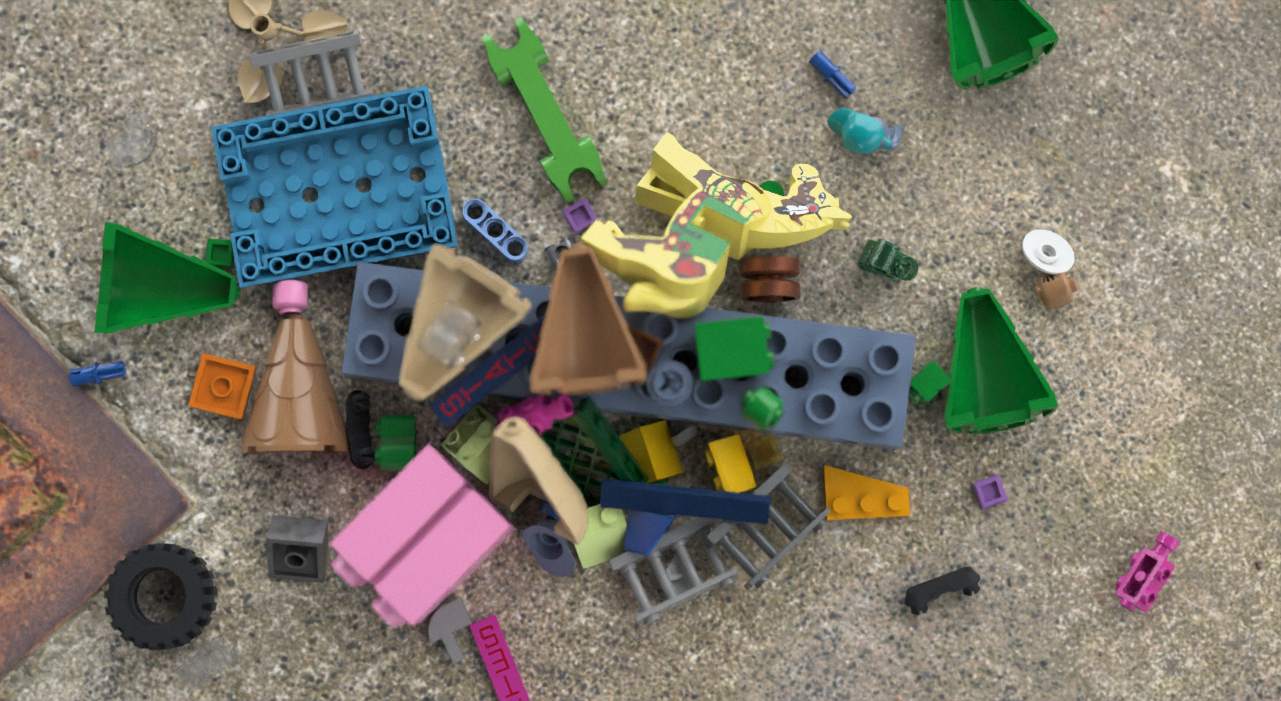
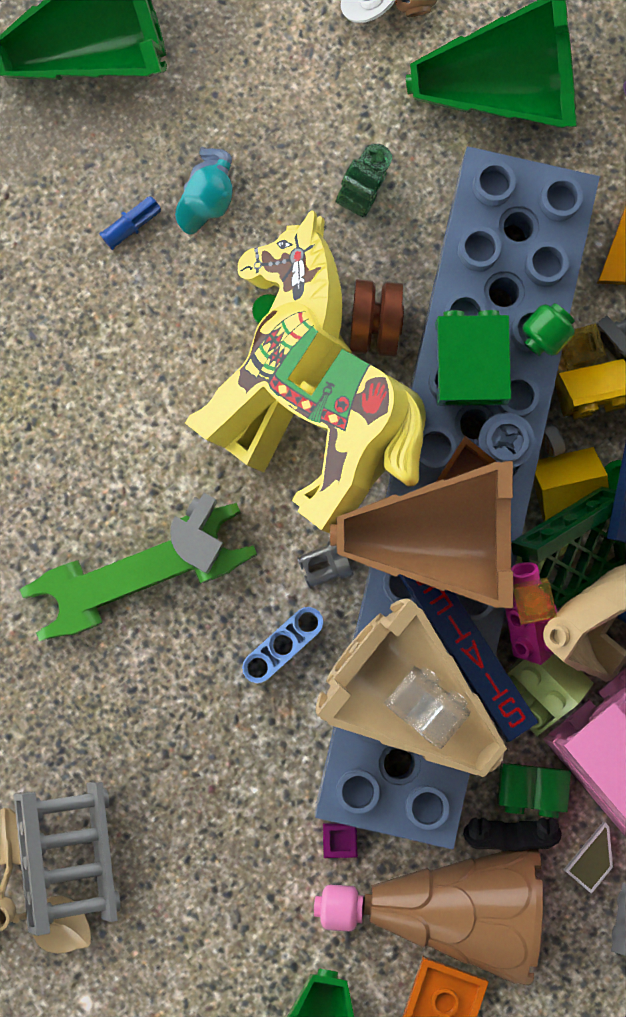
camera: 90 degrees left, 0 degrees up
(220, 253) = (276, 991): green tile -> none
(331, 152) = (165, 841): dark azure slope -> none
(341, 292) = (339, 841): none -> magenta tile
(342, 497) = (592, 860): none -> olive tile
(540, 410) = (534, 601): none -> clear yellow brick
(570, 145) = (190, 541): none -> light grey brick
(580, 216) = (273, 541): medium lavender tile -> none
(927, 383) = (518, 140): green brick -> none

